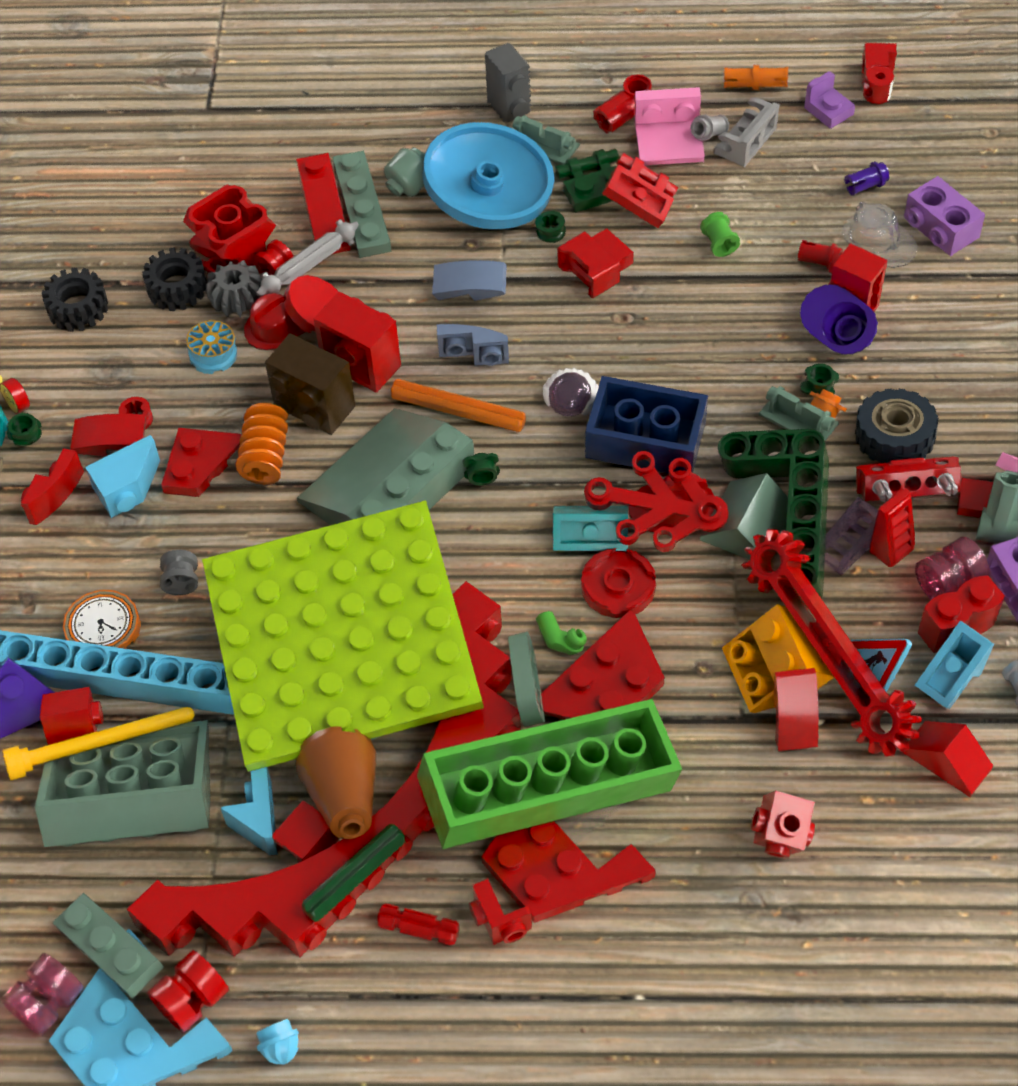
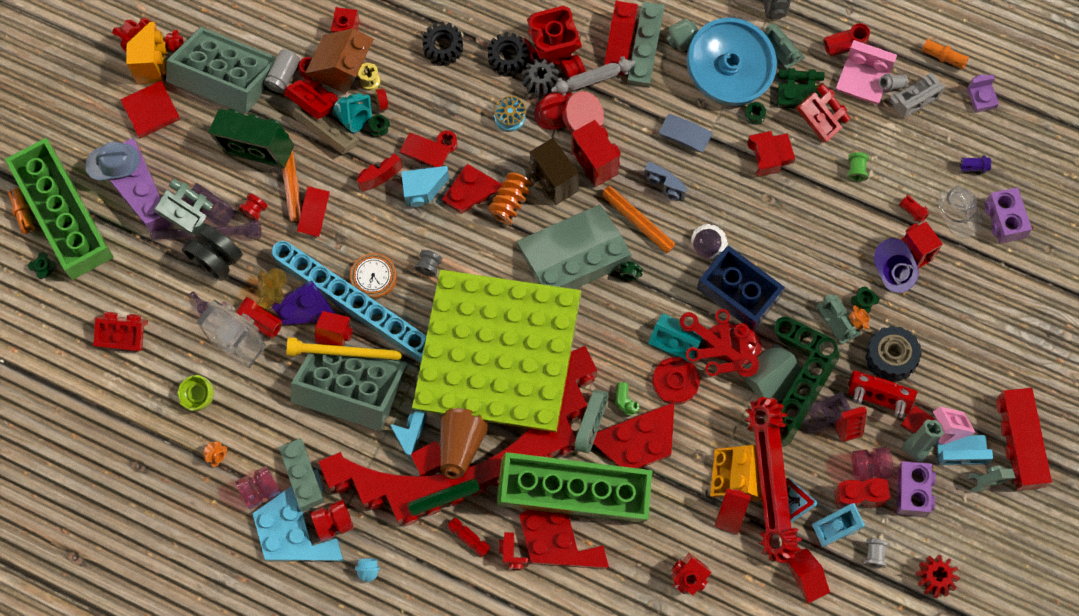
camera: 25 degrees right, 15 degrees up
(877, 71) = (1025, 88): red leg -> none

